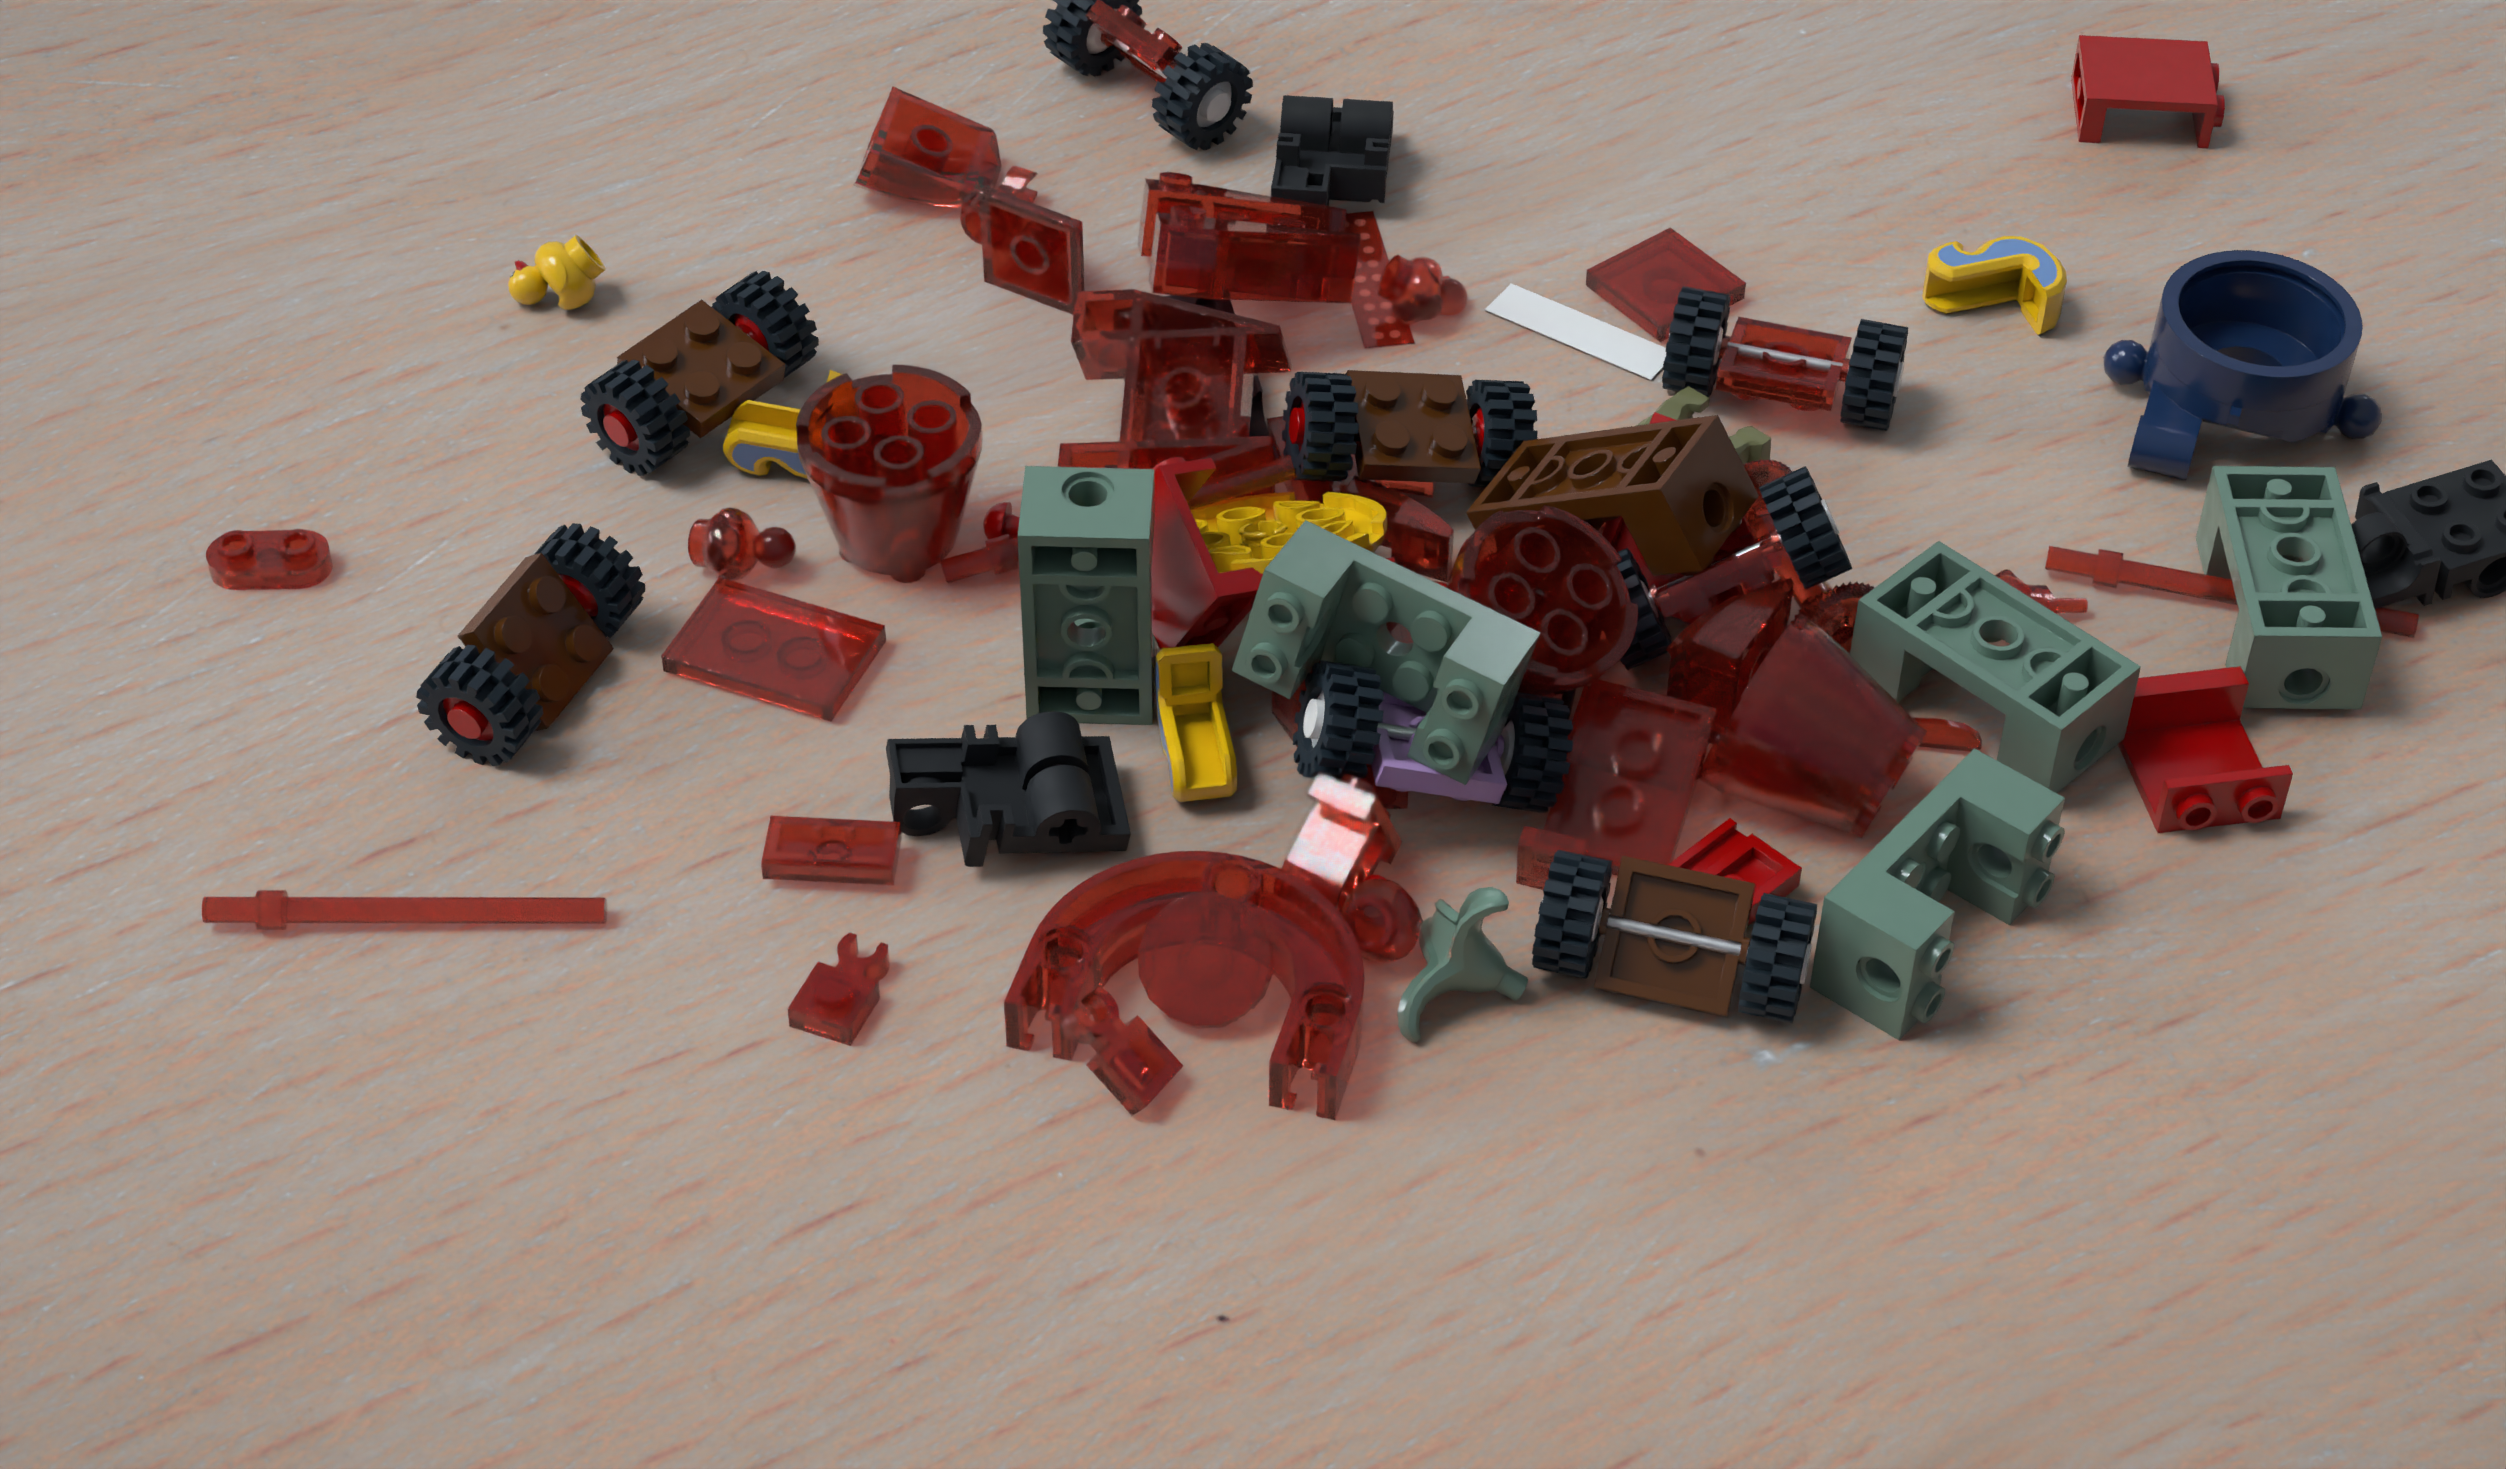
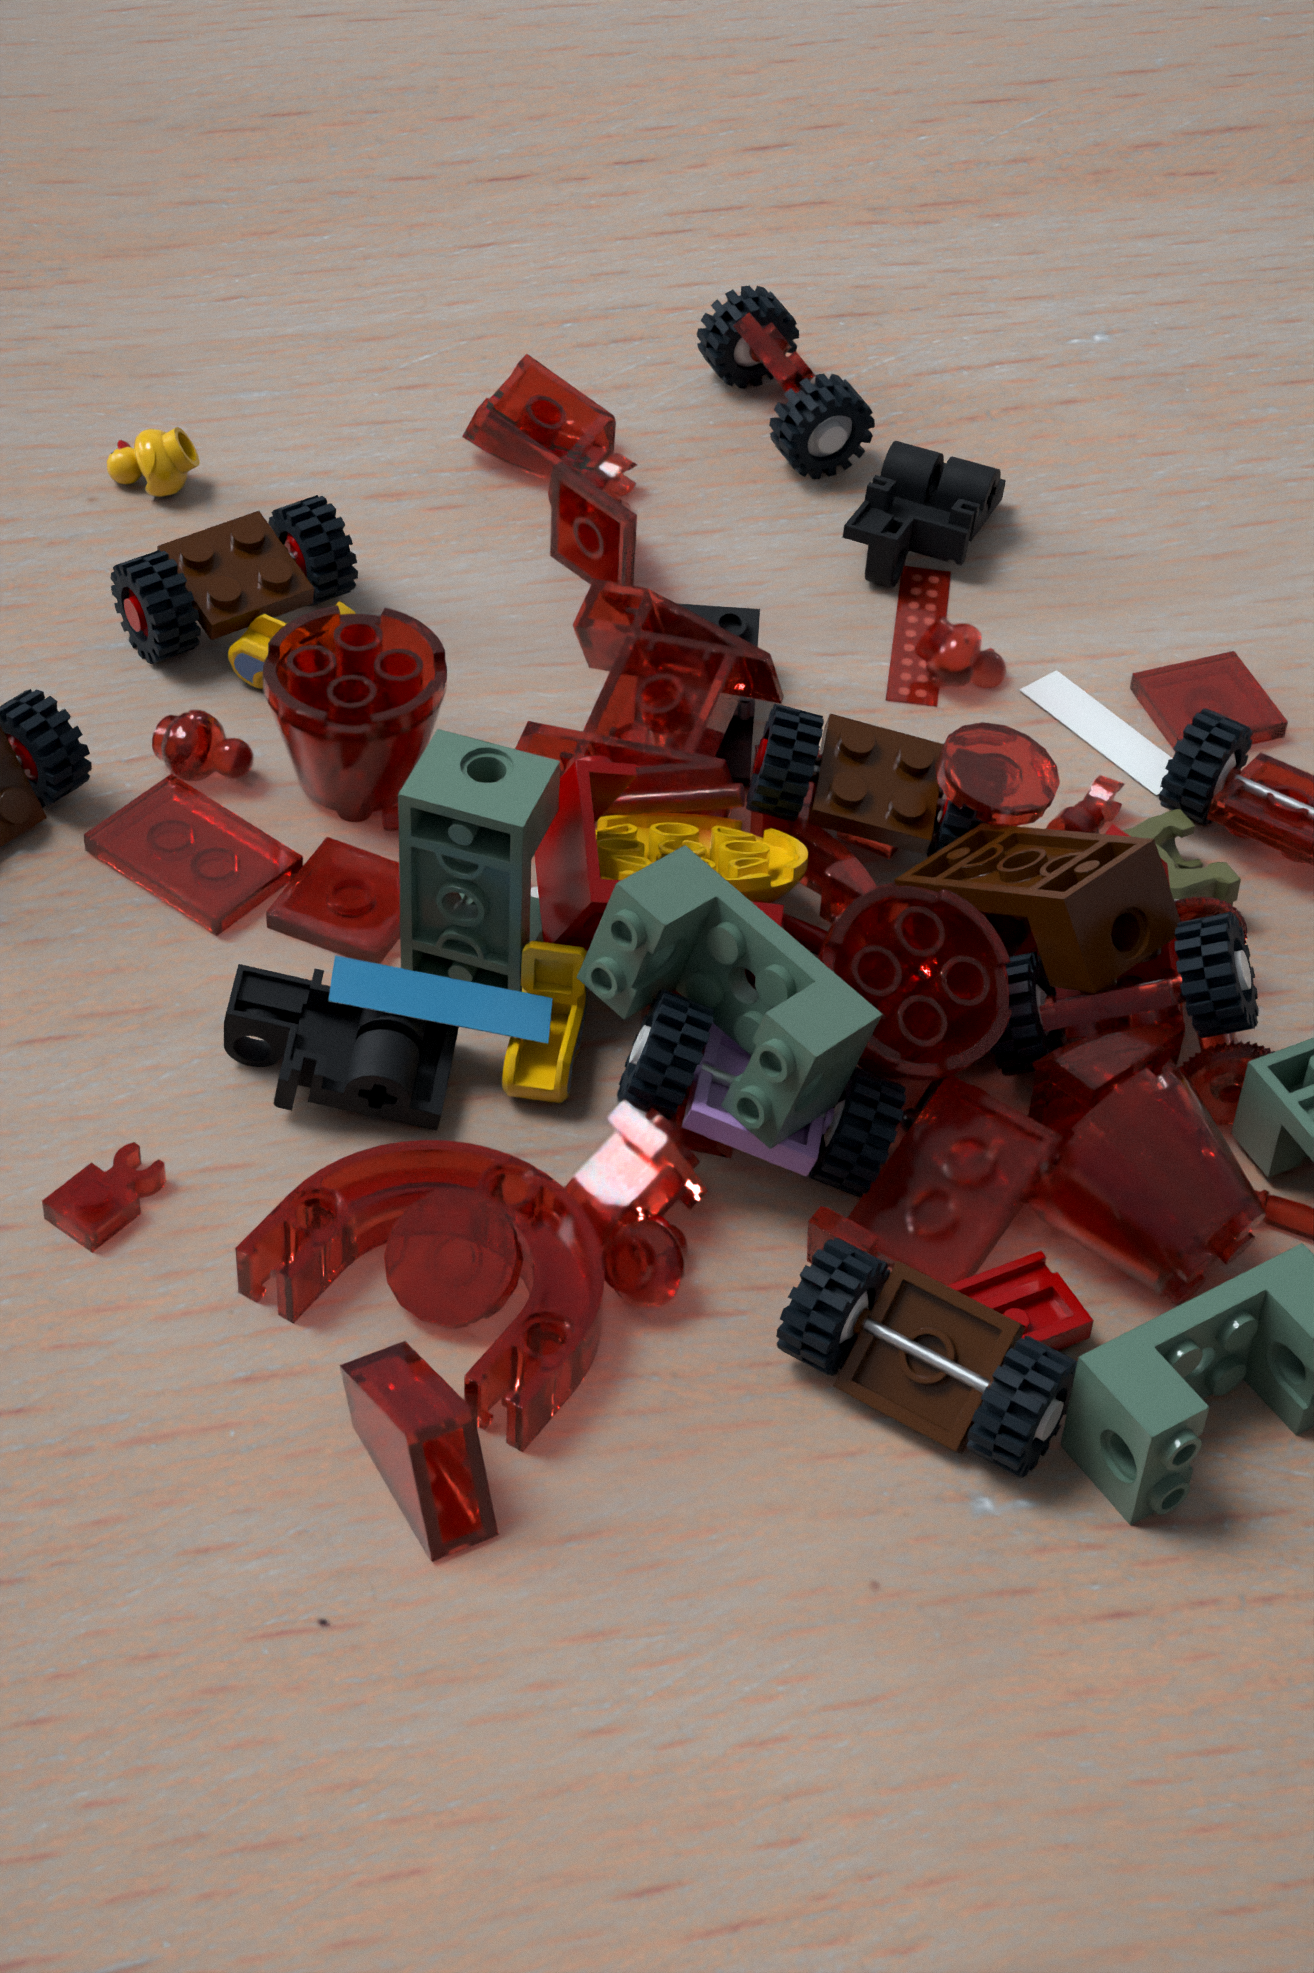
camera: 15 degrees right, 0 degrees up
(831, 850) = (154, 1058): clear red plate -> none
(947, 658) = (342, 902): none -> clear red tile
(1095, 725) = (440, 999): none -> dark azure sticker
(1128, 1055) = (334, 1329): clear red plate -> none
(1244, 244) = (791, 573): clear red wedge -> none
(1252, 1134) = (423, 1447): none -> clear red slope
(1458, 958) = (706, 1325): sand green piece -> none
(1527, 390) = (997, 773): none -> clear red tile
(1605, 408) = (1093, 810): none -> clear red piece

